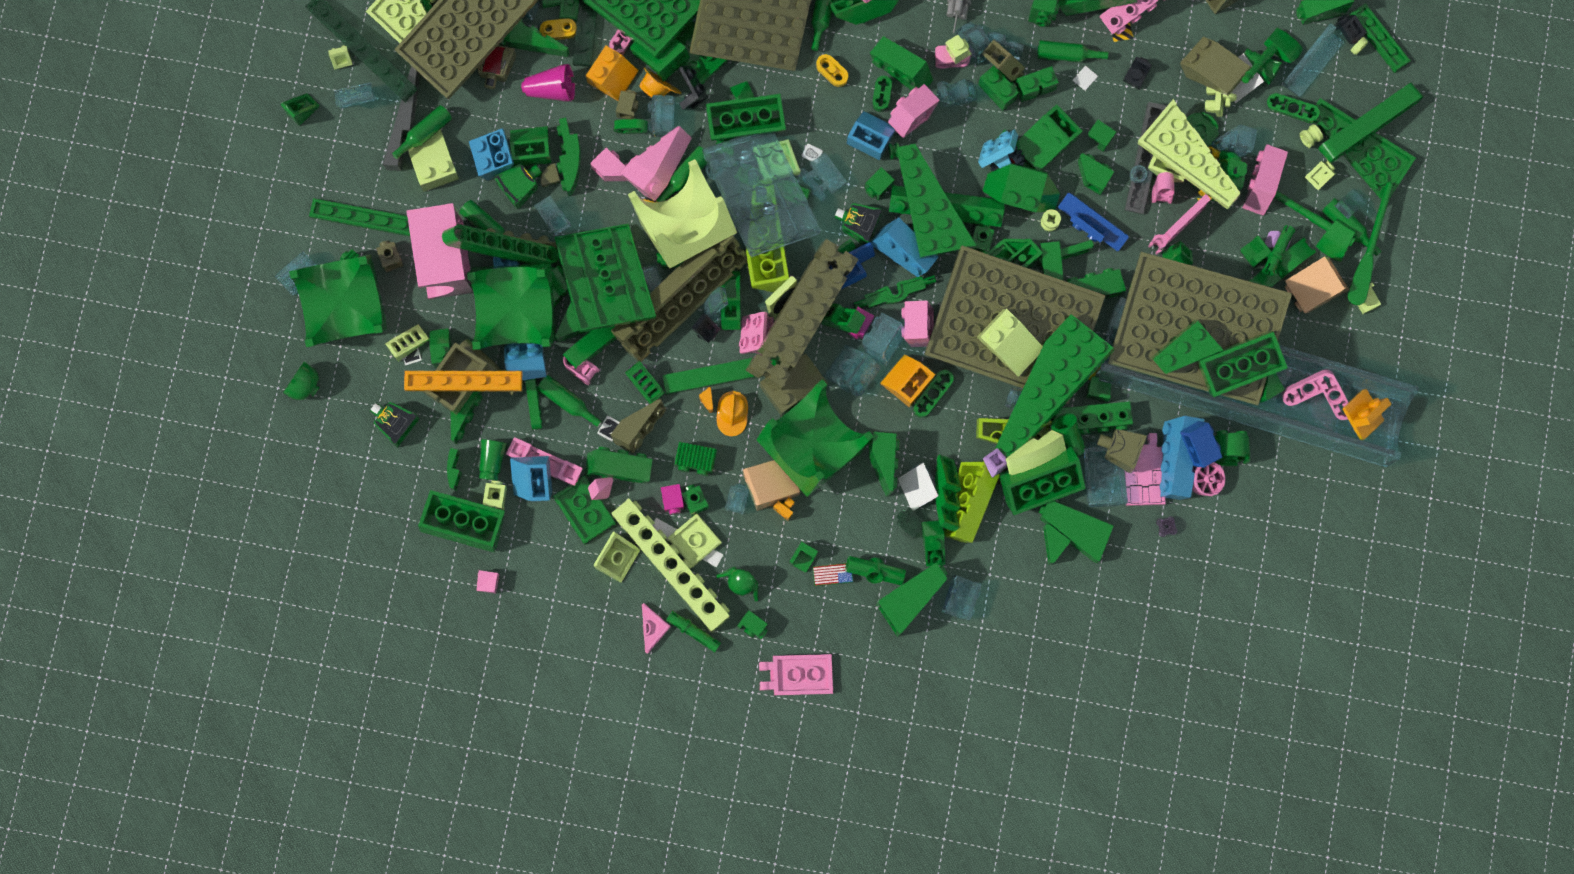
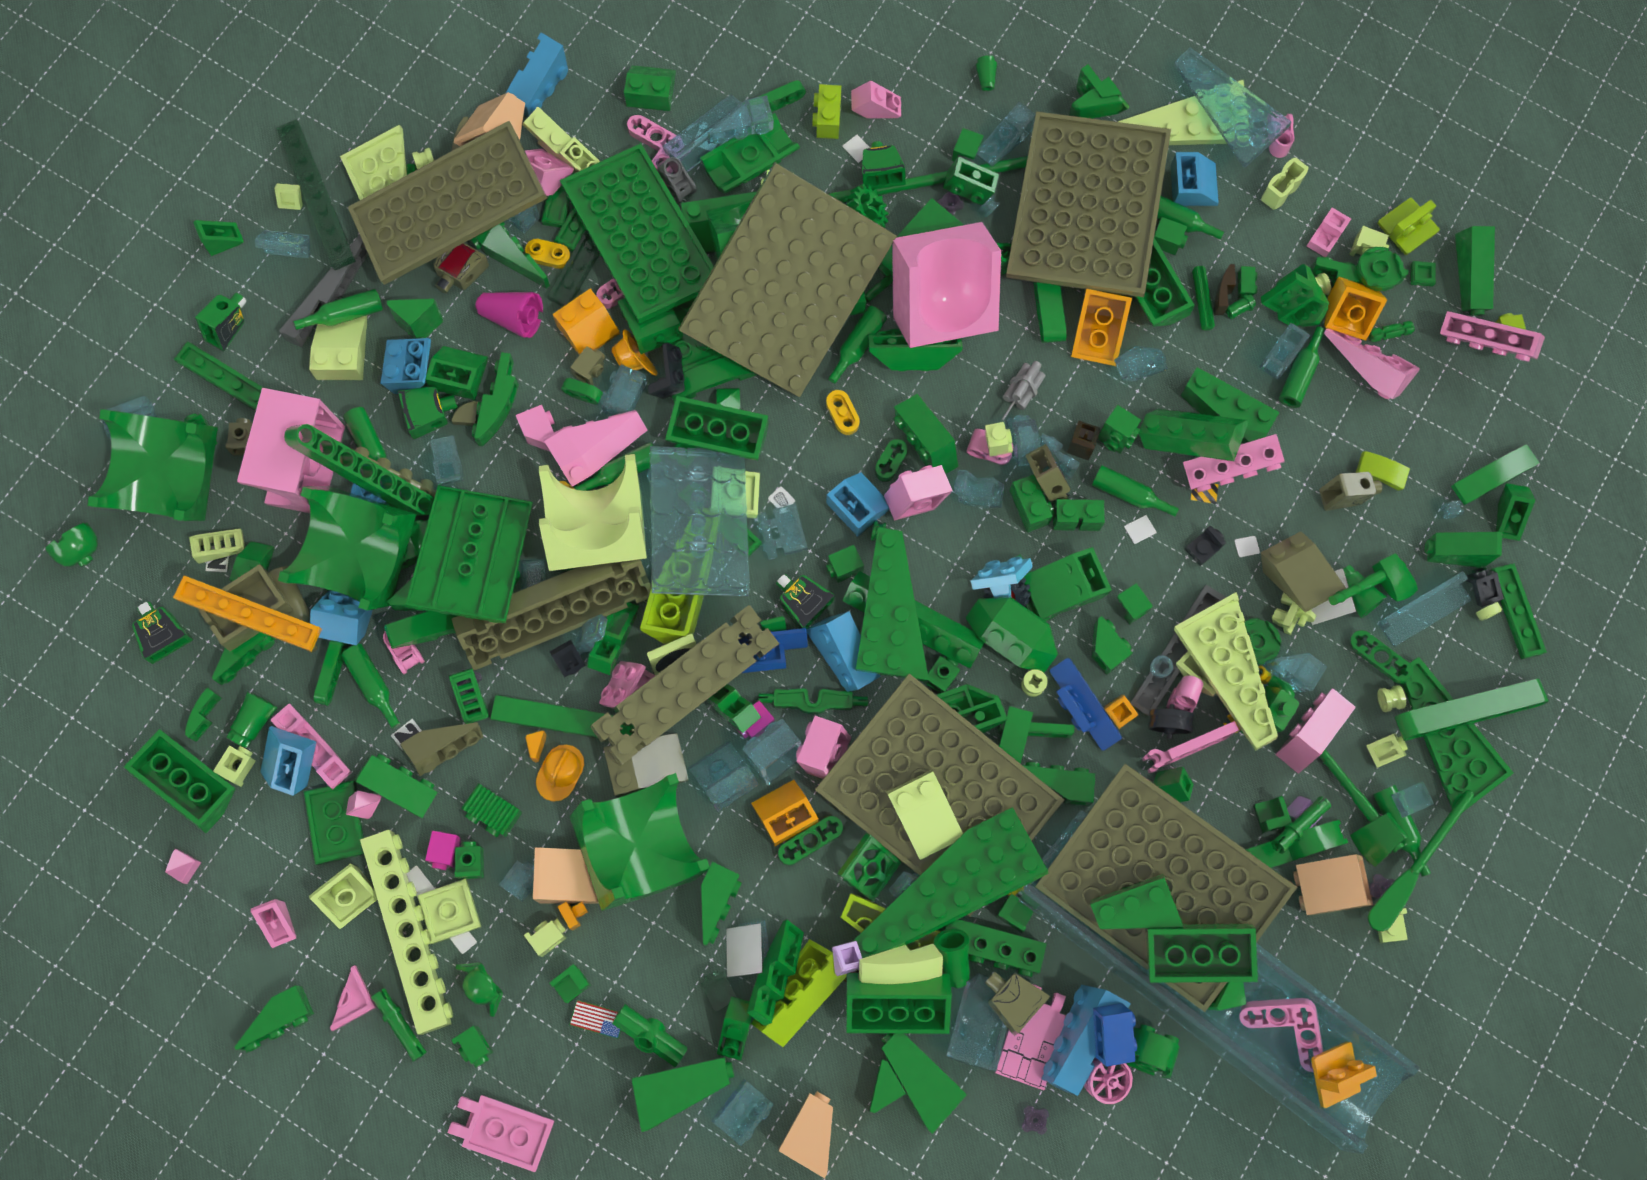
camera: 20 degrees right, 5 degrees down
(334, 172) = (221, 320): none -> green torso
(481, 115) = (416, 316): none -> green slope
(574, 595) = (274, 922): none -> bright pink slope
(606, 654) = (281, 1012): none -> green slope
(723, 78) = (712, 375): none -> green slope
(773, 531) = (546, 936): none -> yellowish green brick
(995, 398) = (891, 863): none -> green piece
(1016, 593) = (810, 1134): none -> light nougat slope
(1019, 26) = (1083, 440): none -> dark brown slope
(1120, 217) = (1120, 711): none -> light orange slope
(1159, 211) = (1171, 721): none -> black wheel
(1167, 62) = (1247, 546): none -> white sticker
(1347, 278) = (1378, 882): none -> clear purple plate

